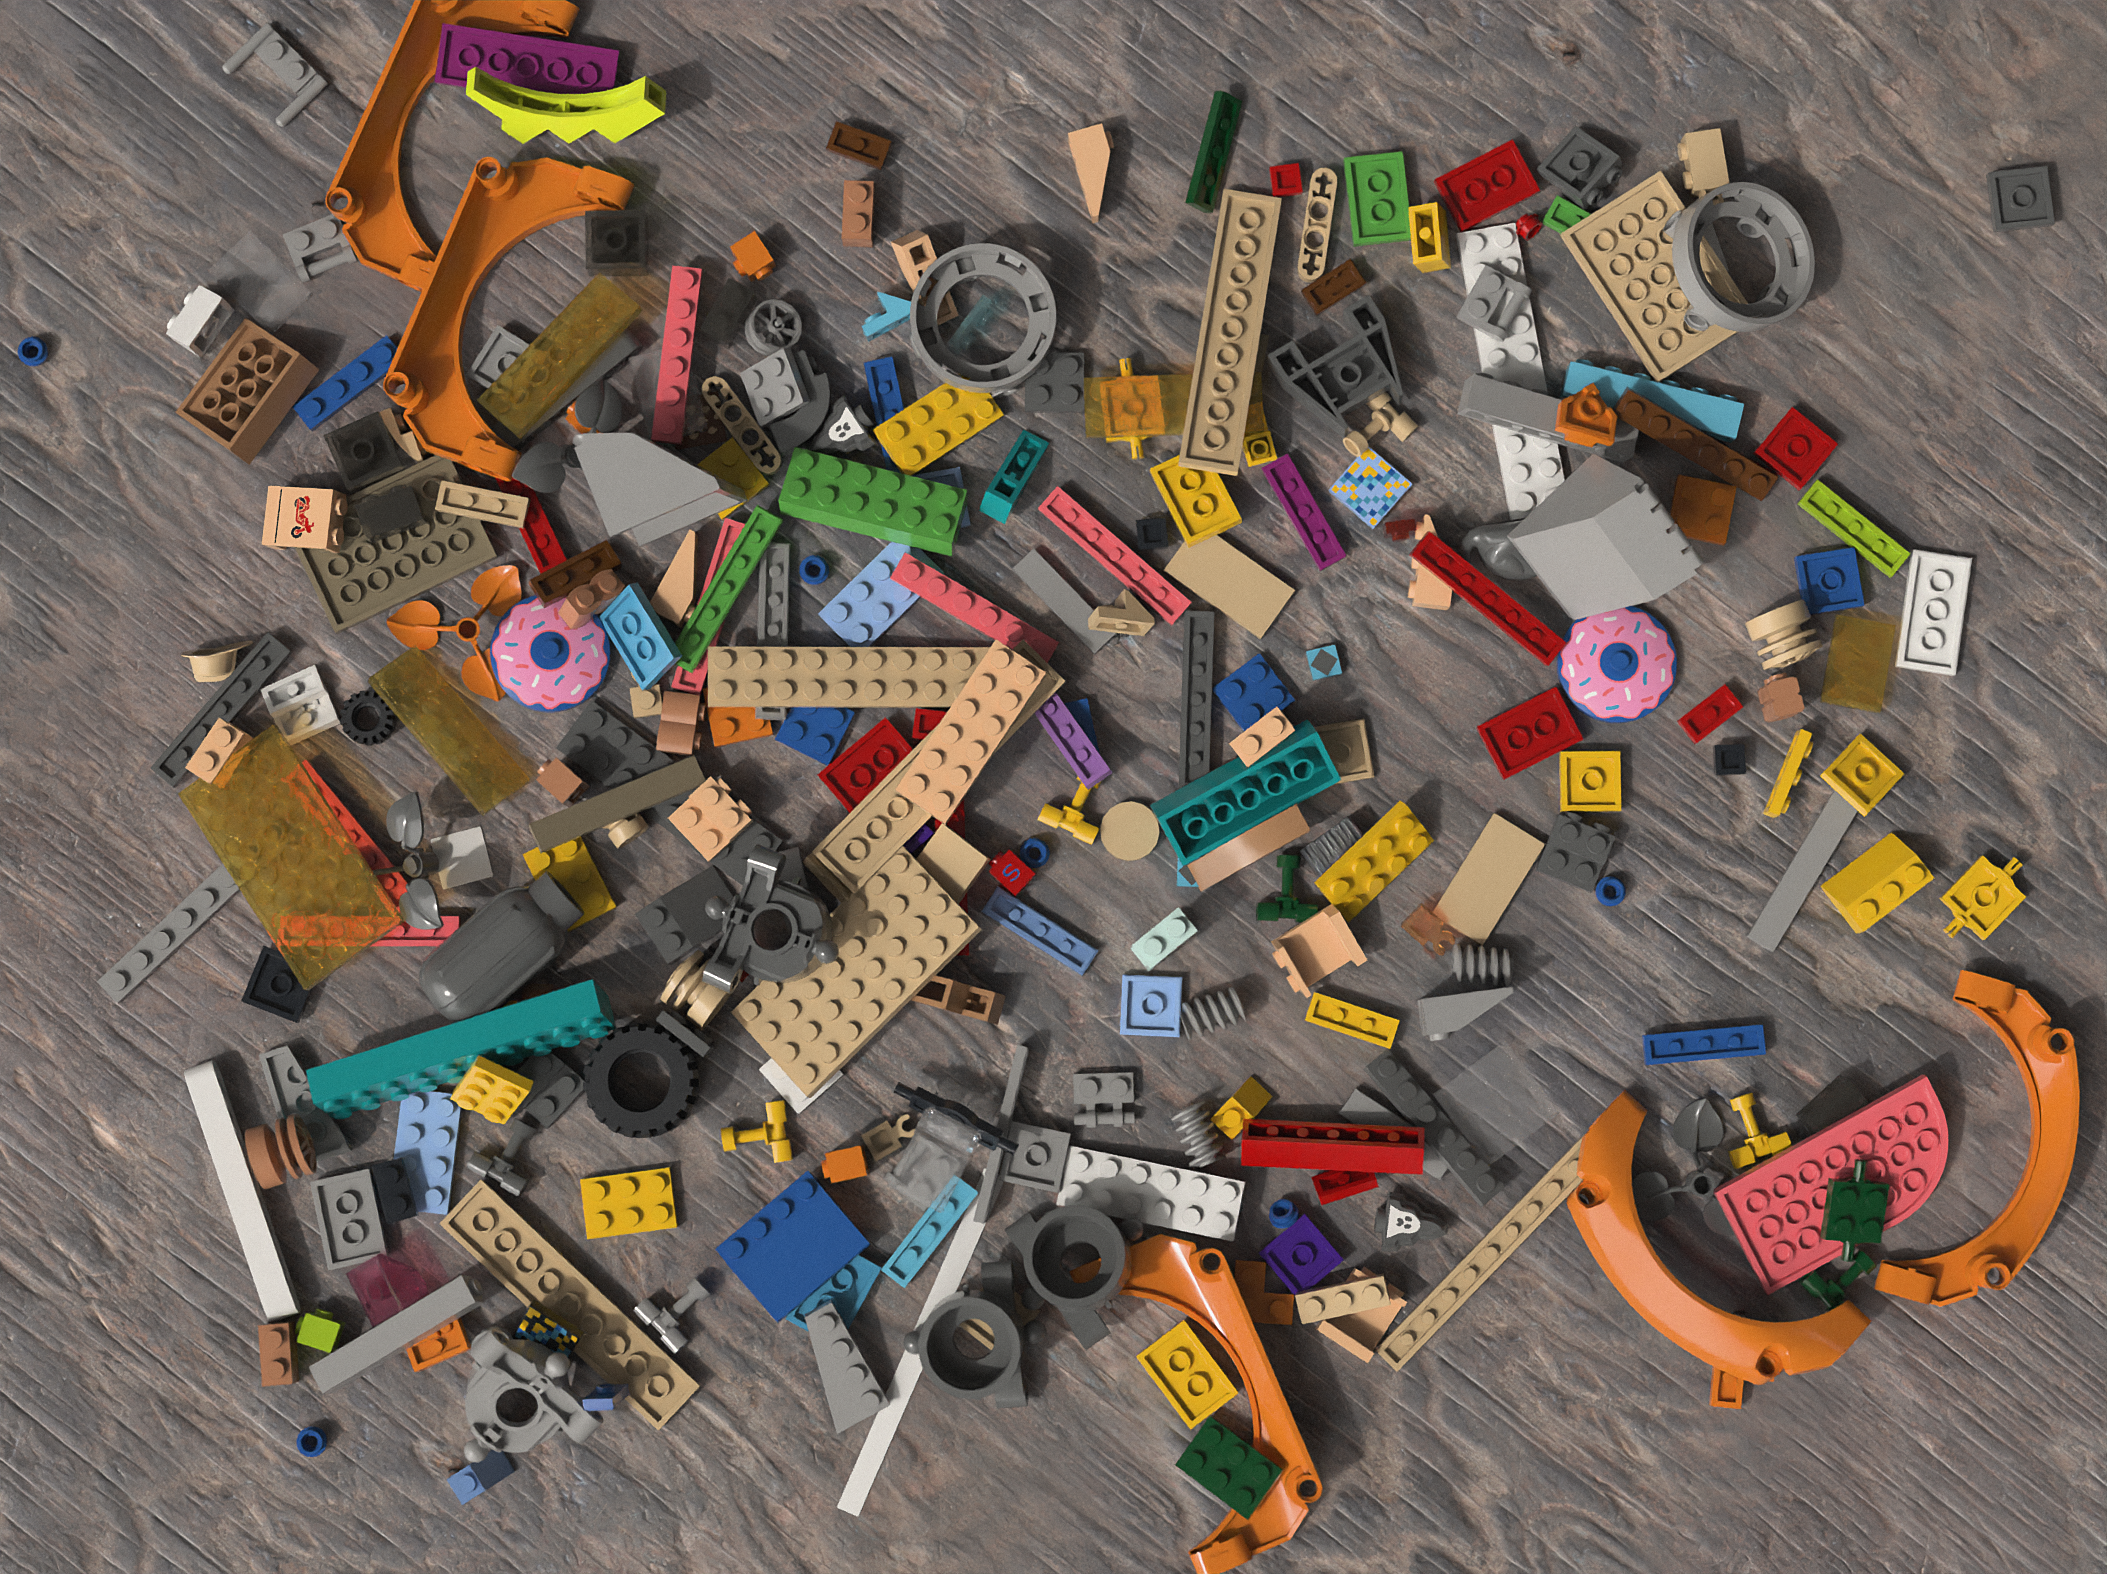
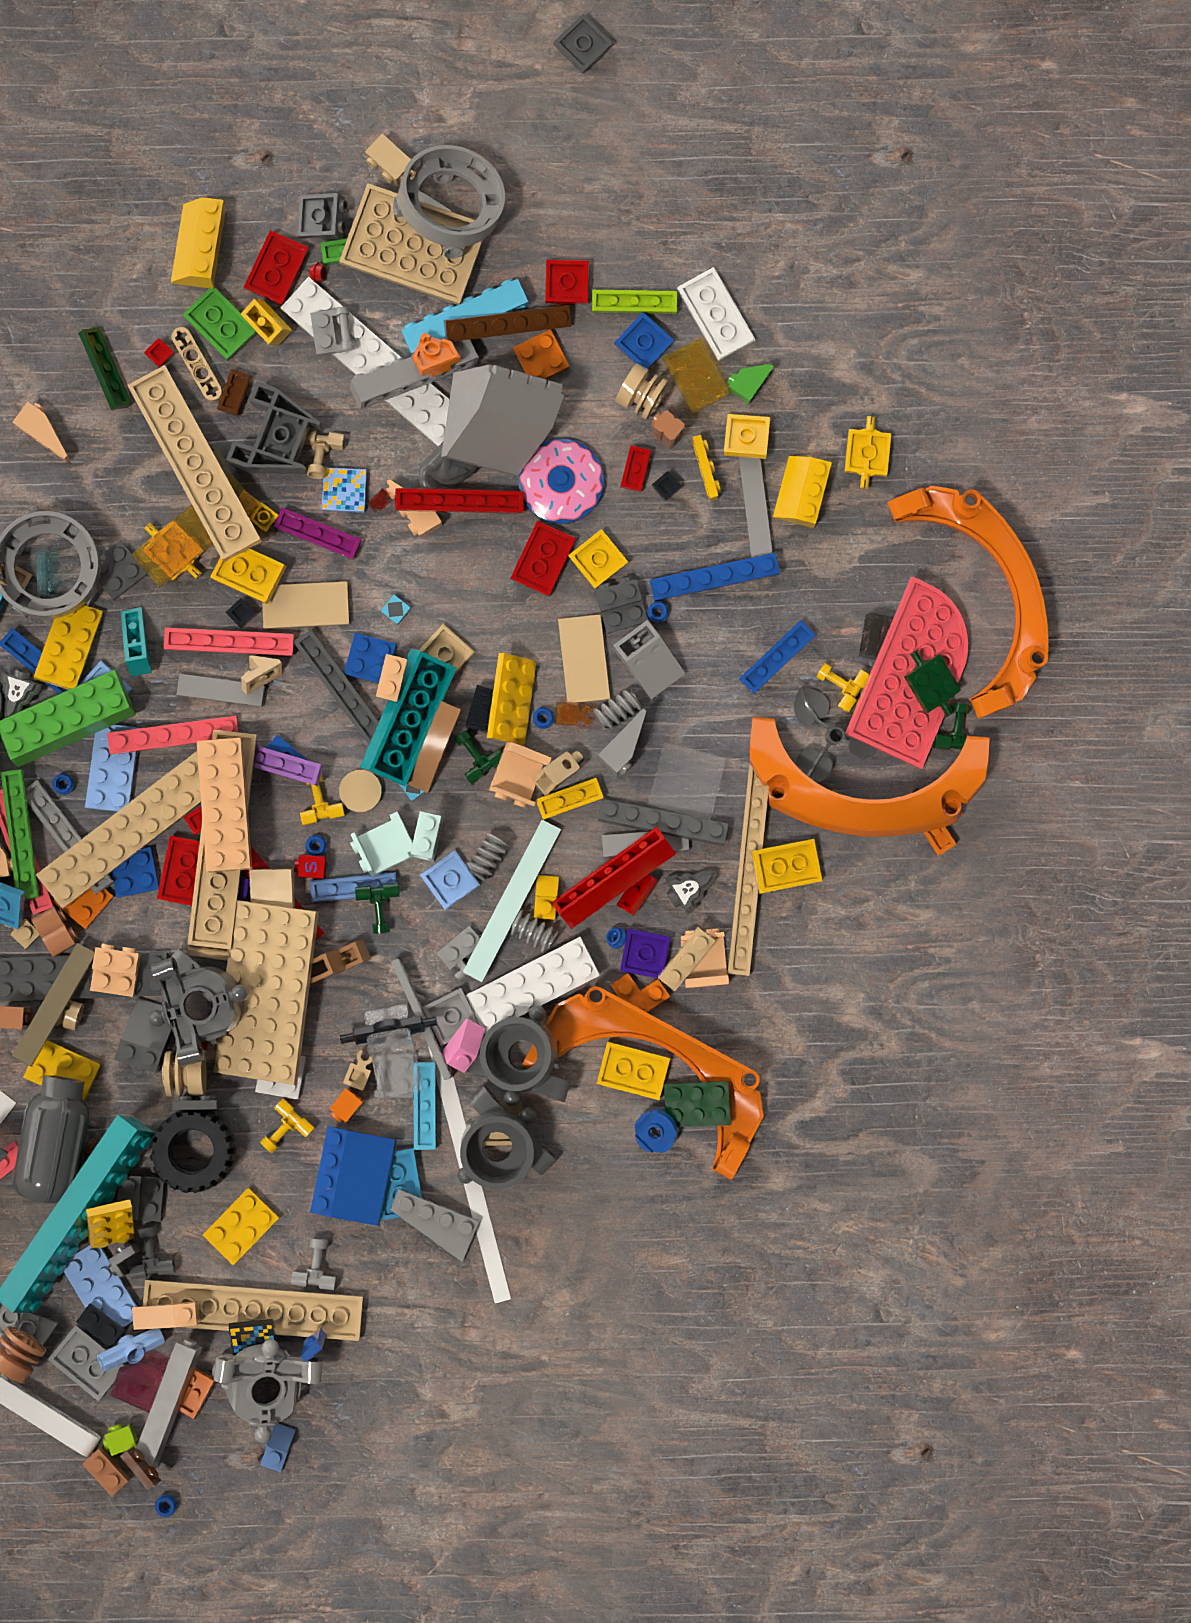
camera: 45 degrees left, 0 degrees up
(317, 1369) = (146, 1474): none -> reddish brown plate
(407, 1242) = (130, 1349): none -> light blue piece
(473, 1237) = (166, 1315): none -> light nougat slope
(479, 1133) = (124, 1252): none -> flat silver bracket
(1024, 1200) = (464, 1046): none -> bright pink slope
(1058, 963) = (377, 897): none -> dark green bar
(1108, 911) = (383, 846): none -> light aqua panel
(1176, 1460) = (660, 1120): none -> blue plate
(1200, 1082) = (511, 901): none -> light aqua tile
(1362, 981) = (558, 772): none -> tan torso
(1401, 904) = (543, 711): none -> blue plate
(1423, 93) = (199, 243): none -> yellow slope
(1533, 1284) = (786, 866): none -> yellow plate
(1559, 936) = (648, 659): none -> light grey slope
(1704, 902) = (714, 577): none -> blue plate
(1911, 715) = (748, 382): none -> bright green slope

